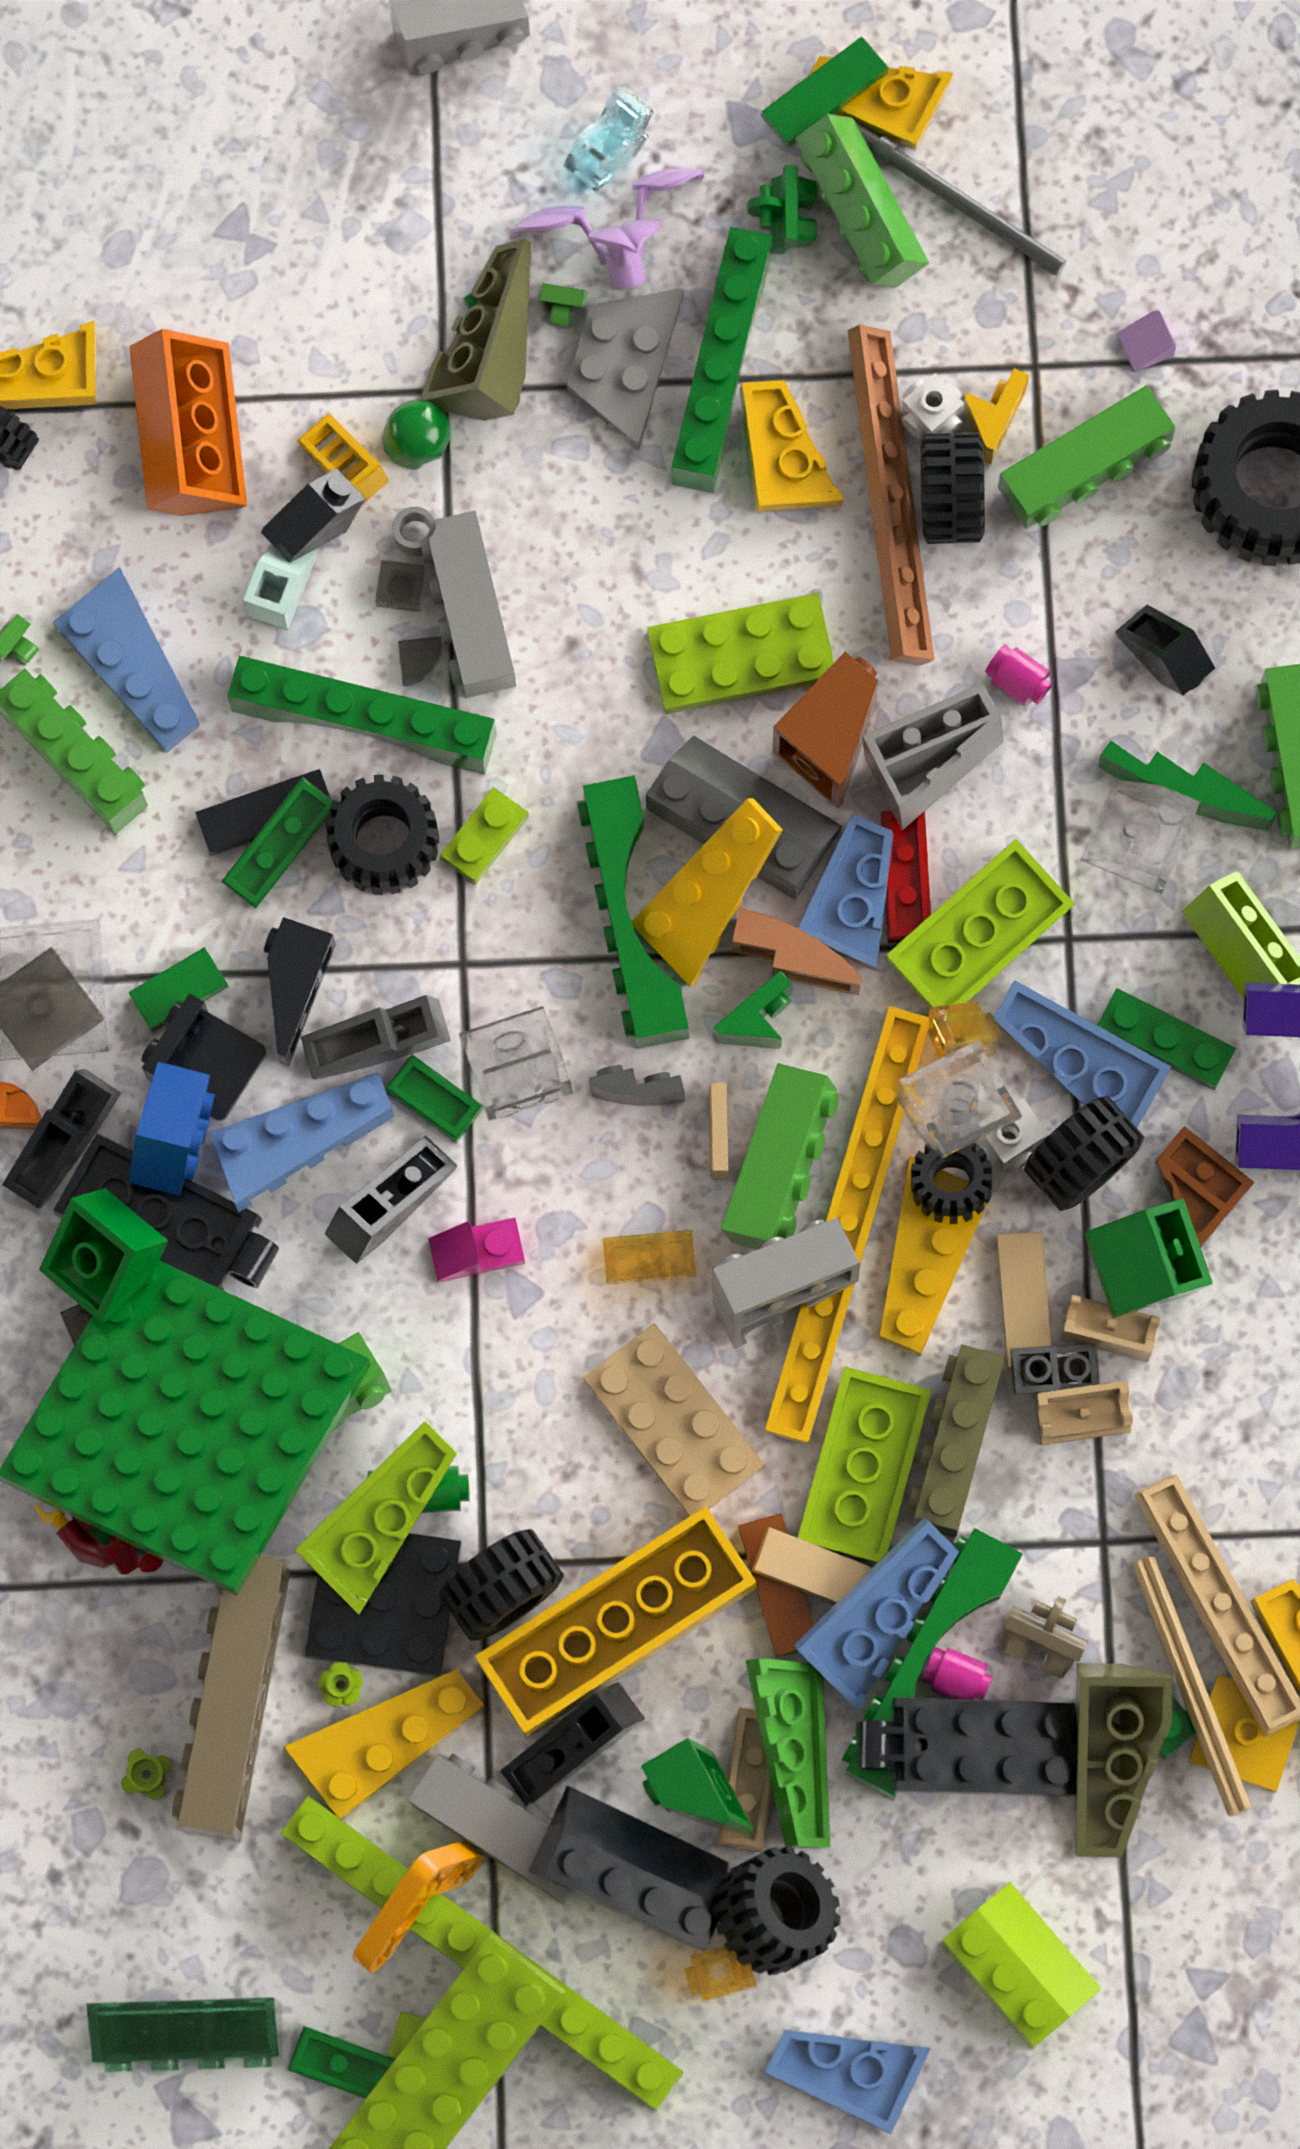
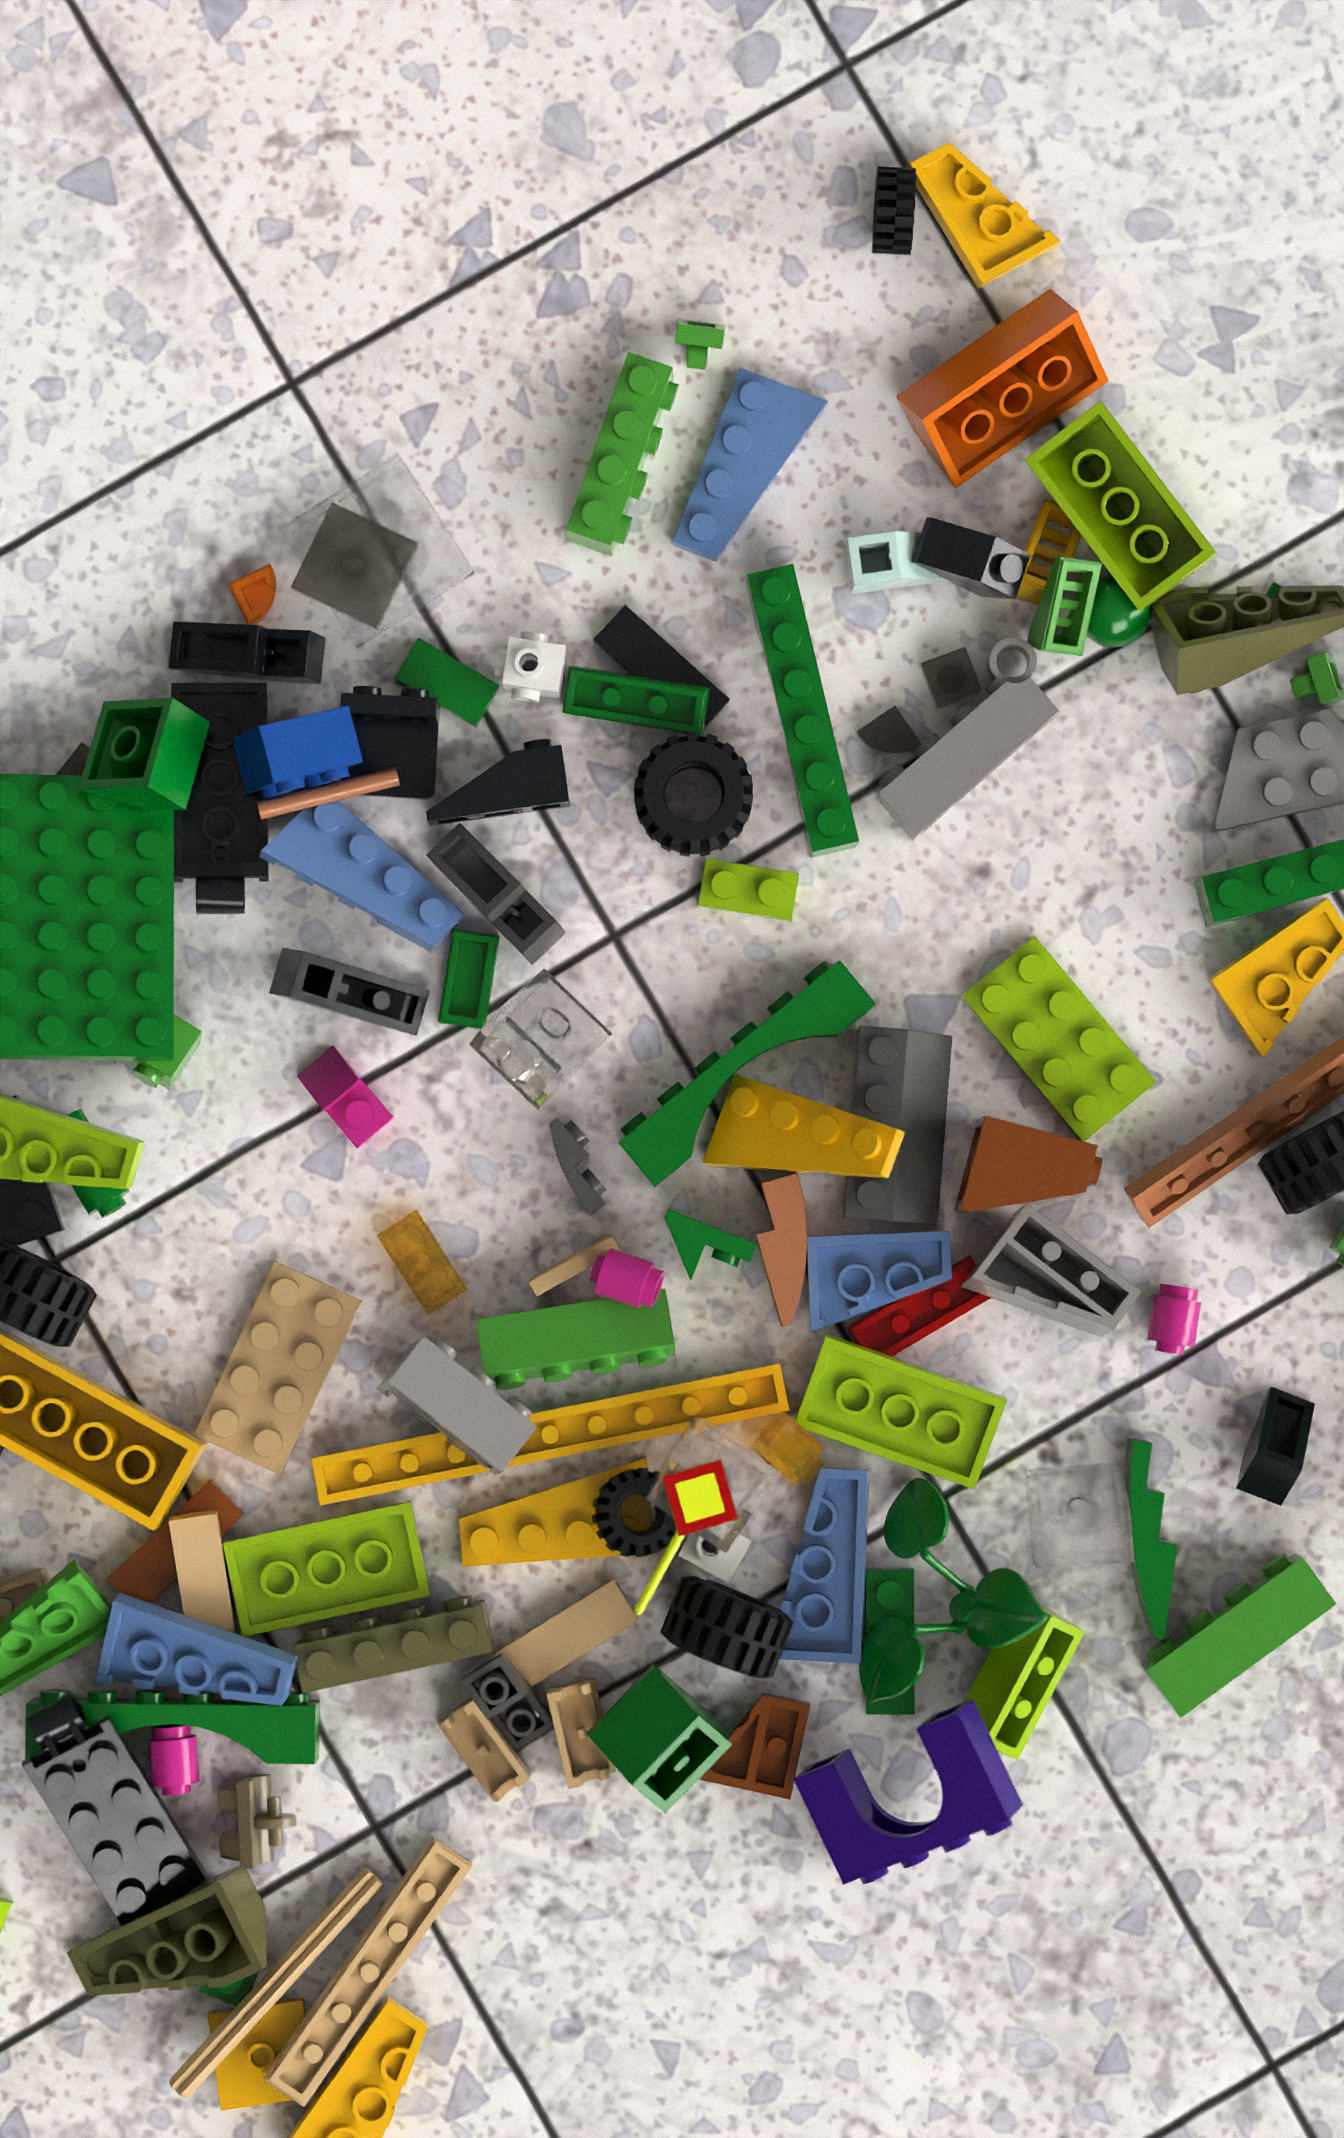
camera: 60 degrees right, 10 degrees up
(210, 896) = (542, 681): none -> white brick
(217, 1128) = (328, 793): none -> nougat bar
(336, 377) = (1121, 506): none -> lime slope
(419, 472) = (1074, 626): none -> bright green slope
(753, 1085) = (626, 1279): none -> dark pink brick
(967, 1115) = (697, 1501): none -> piece
(1185, 916) = (993, 1614): none -> green plant

